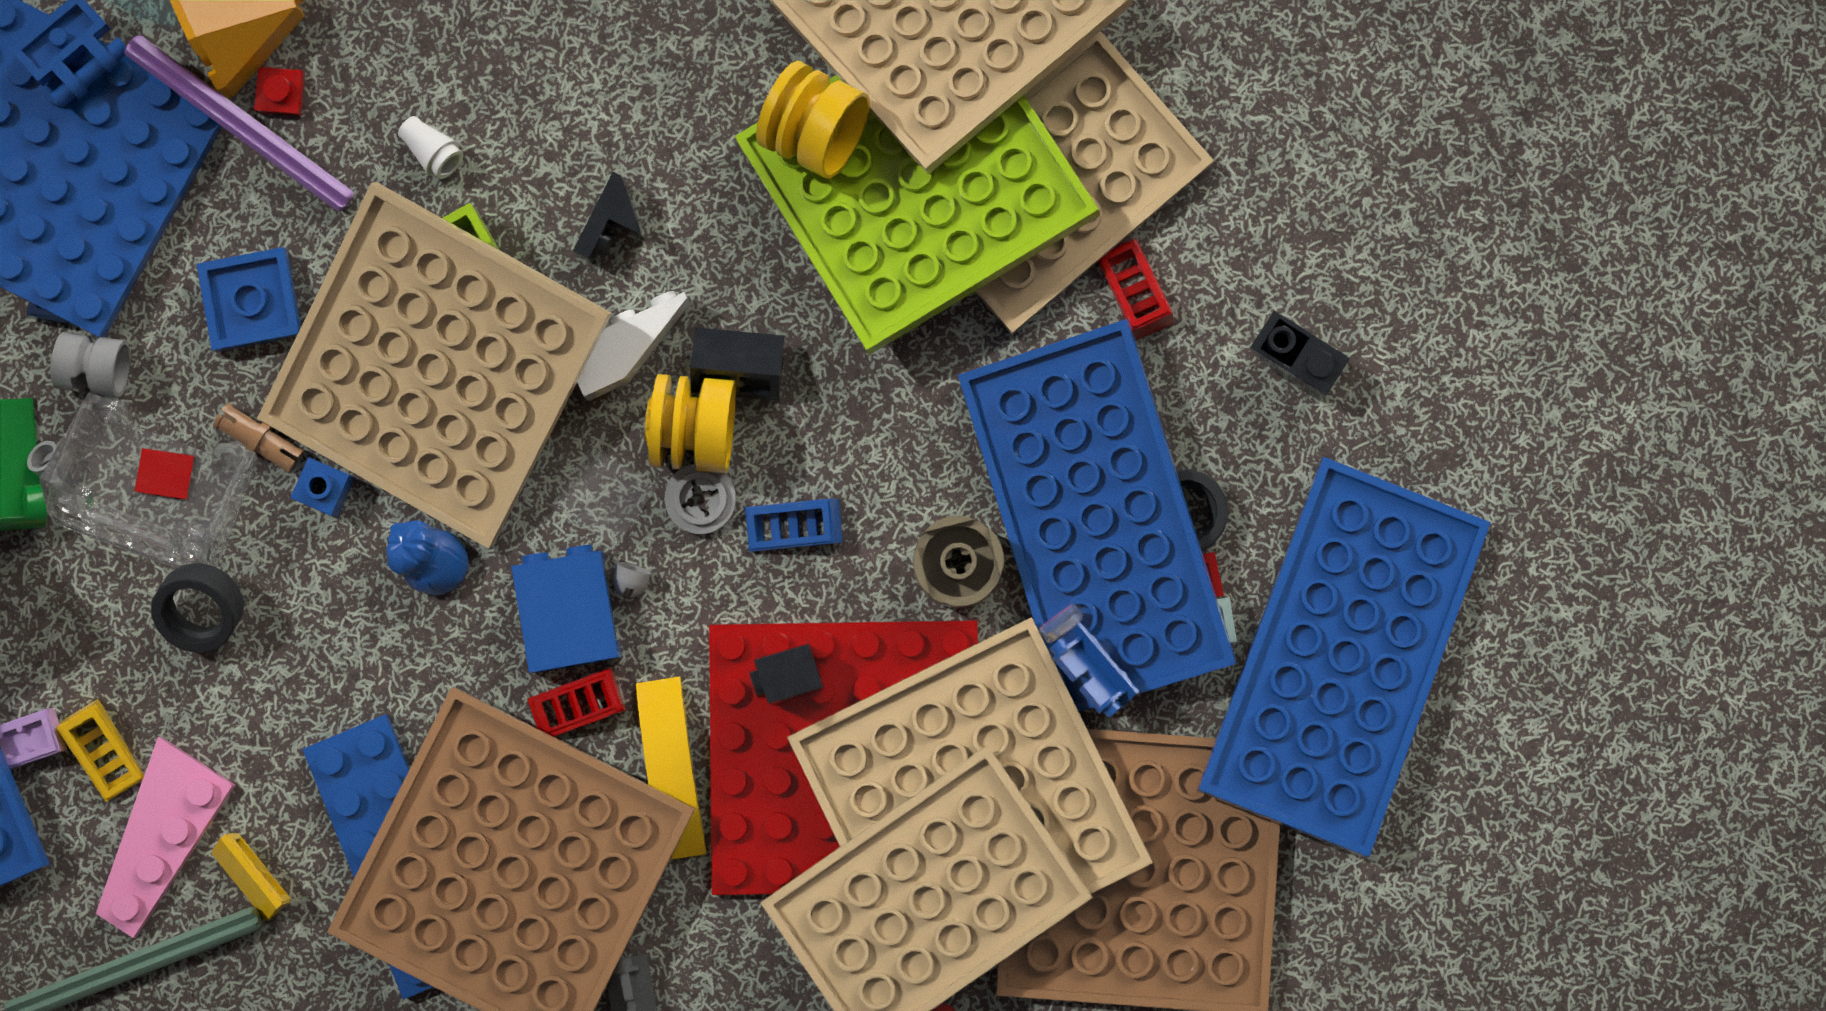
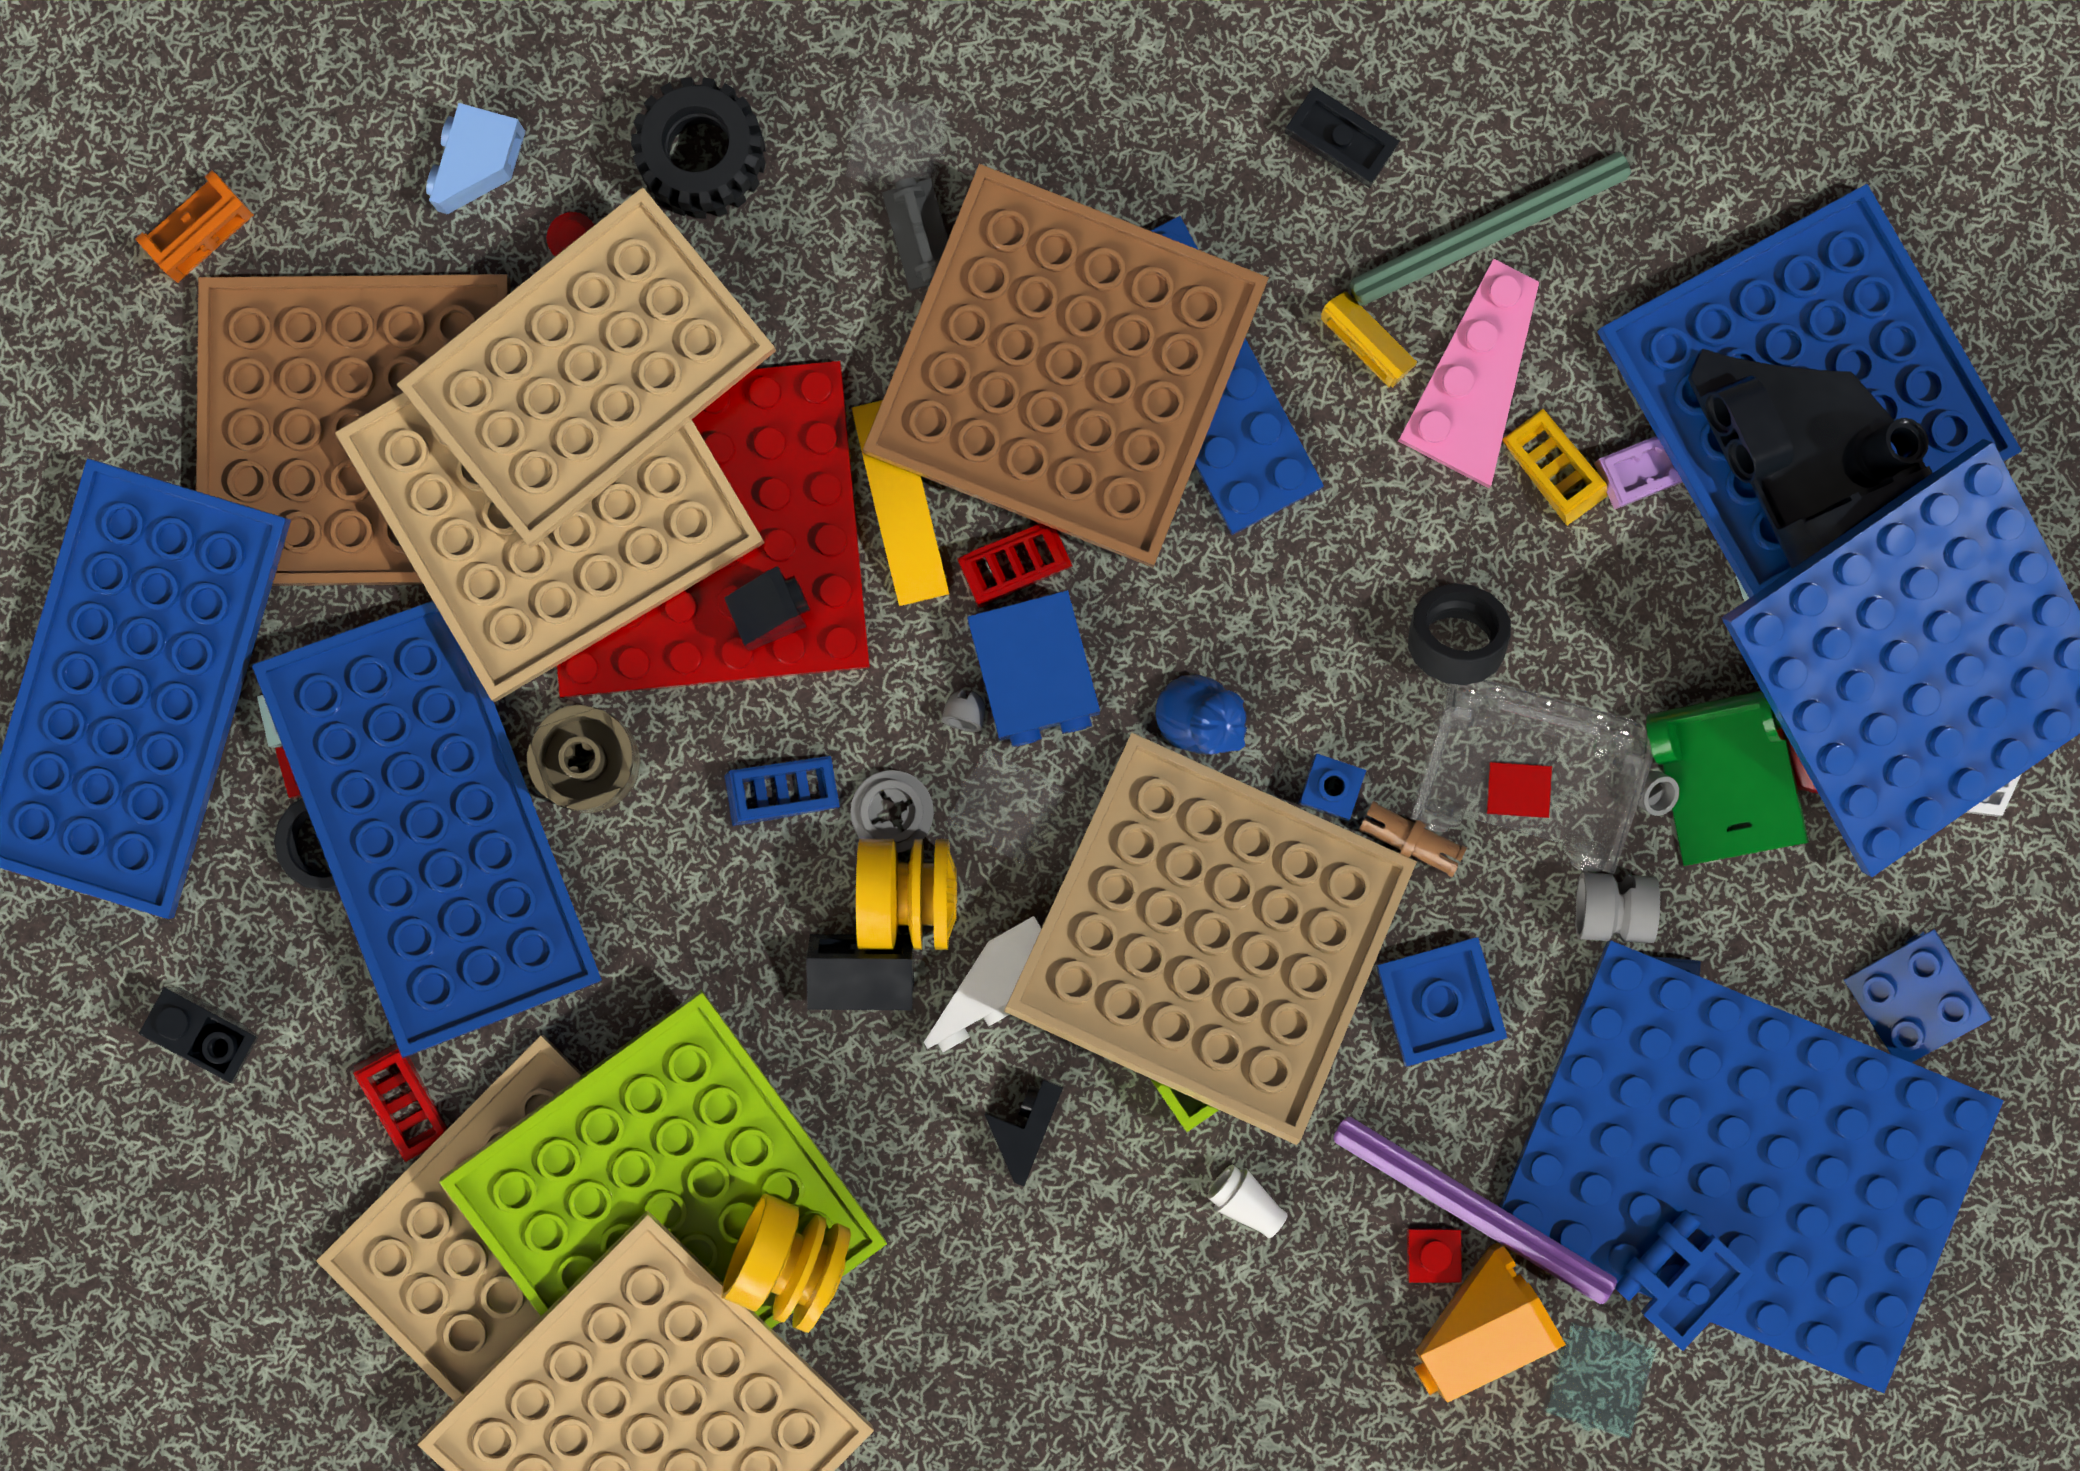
camera: 175 degrees right, 0 degrees up
(1061, 623) = (457, 696): clear tile -> none
(1082, 654) = (431, 660): blue hinge -> none

